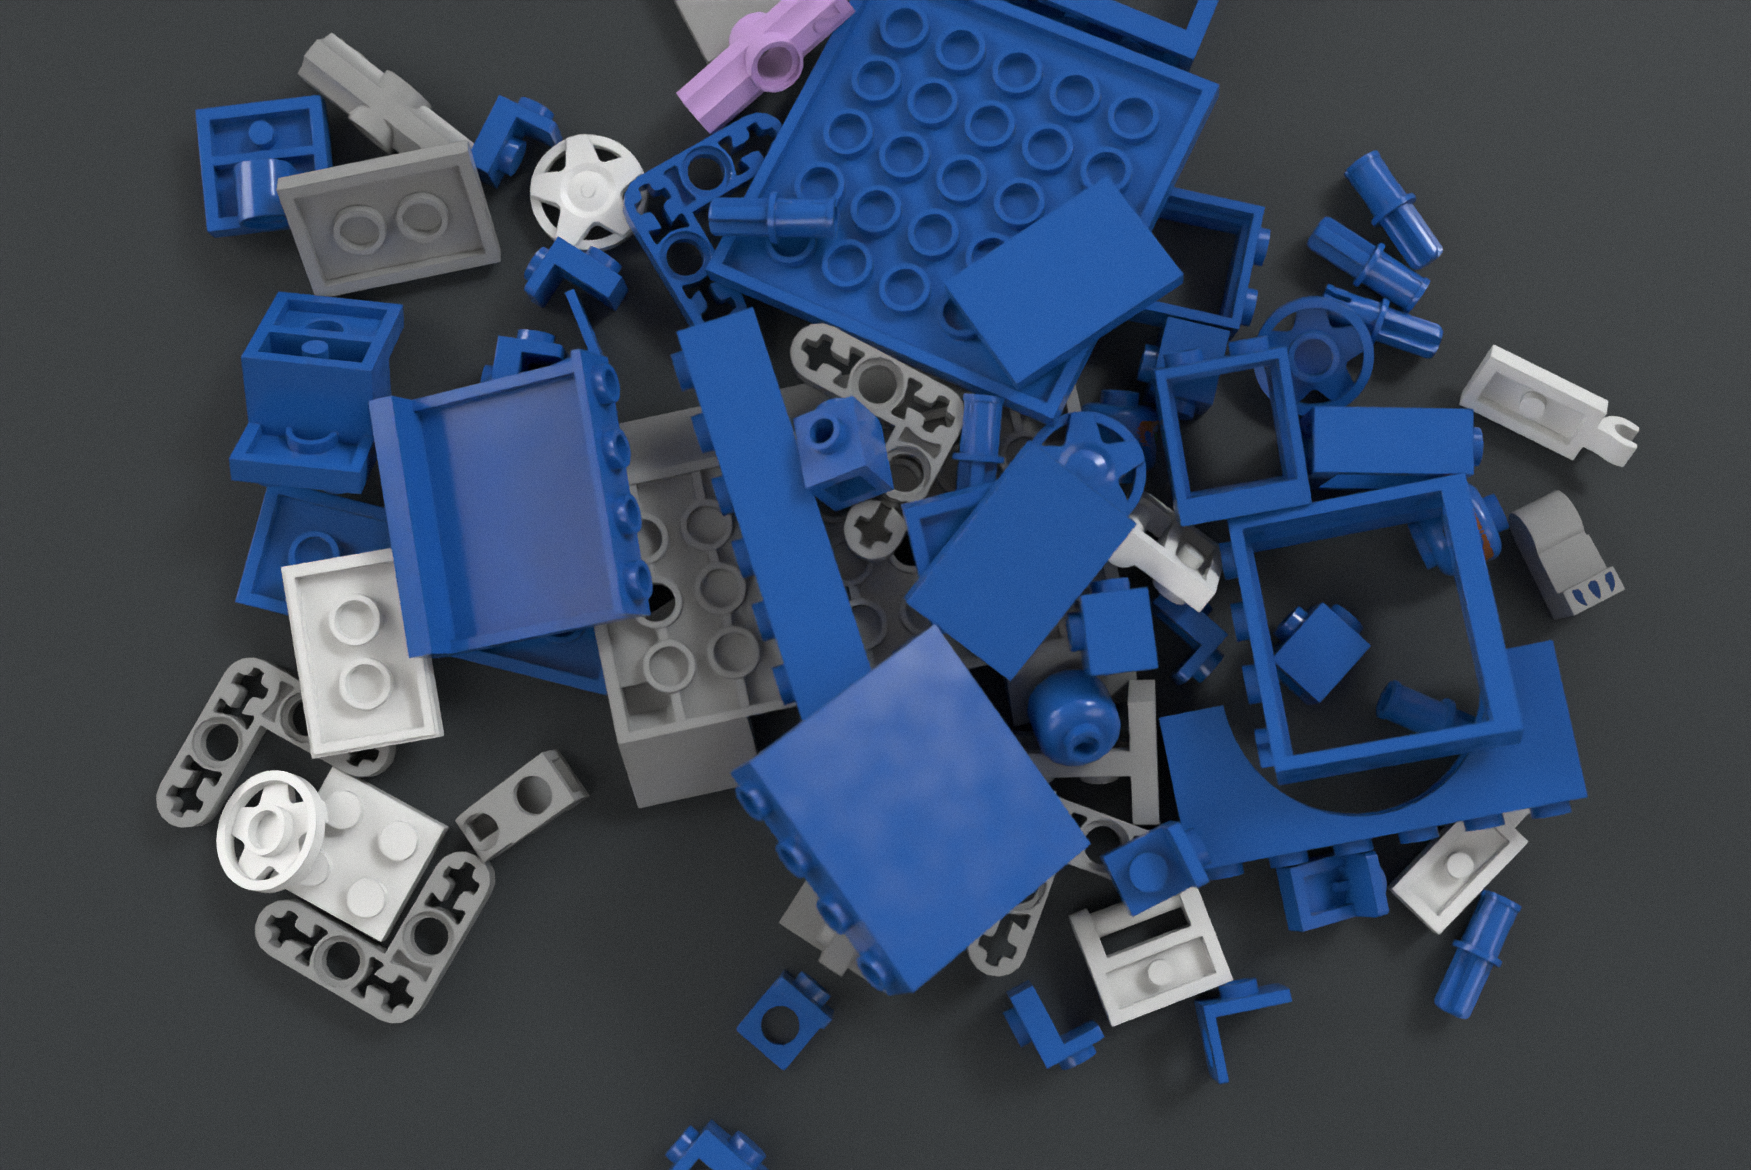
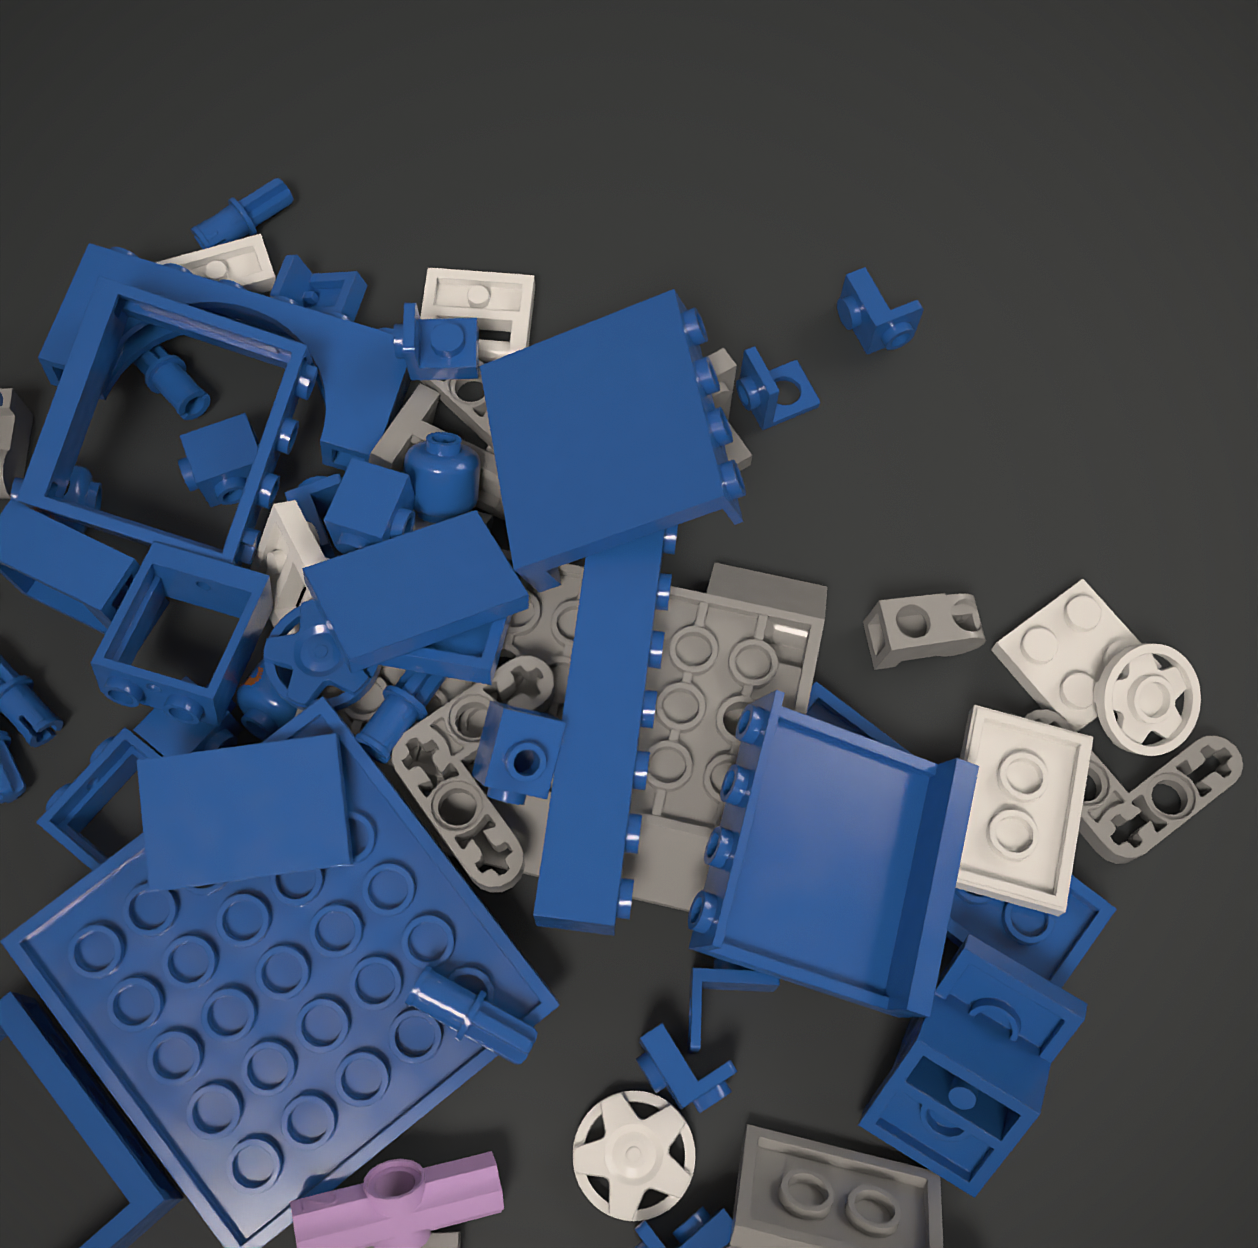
camera: 155 degrees left, 15 degrees down
(402, 956) = (1075, 561): light grey beam -> none
(518, 354) = (785, 1003): blue bracket -> none
(686, 201) = (546, 1093): blue beam -> none
(1032, 1024) = (577, 279): blue bracket -> none
(1234, 998) = (425, 251): blue bracket -> none
(1320, 351) = (69, 691): blue wheel -> none

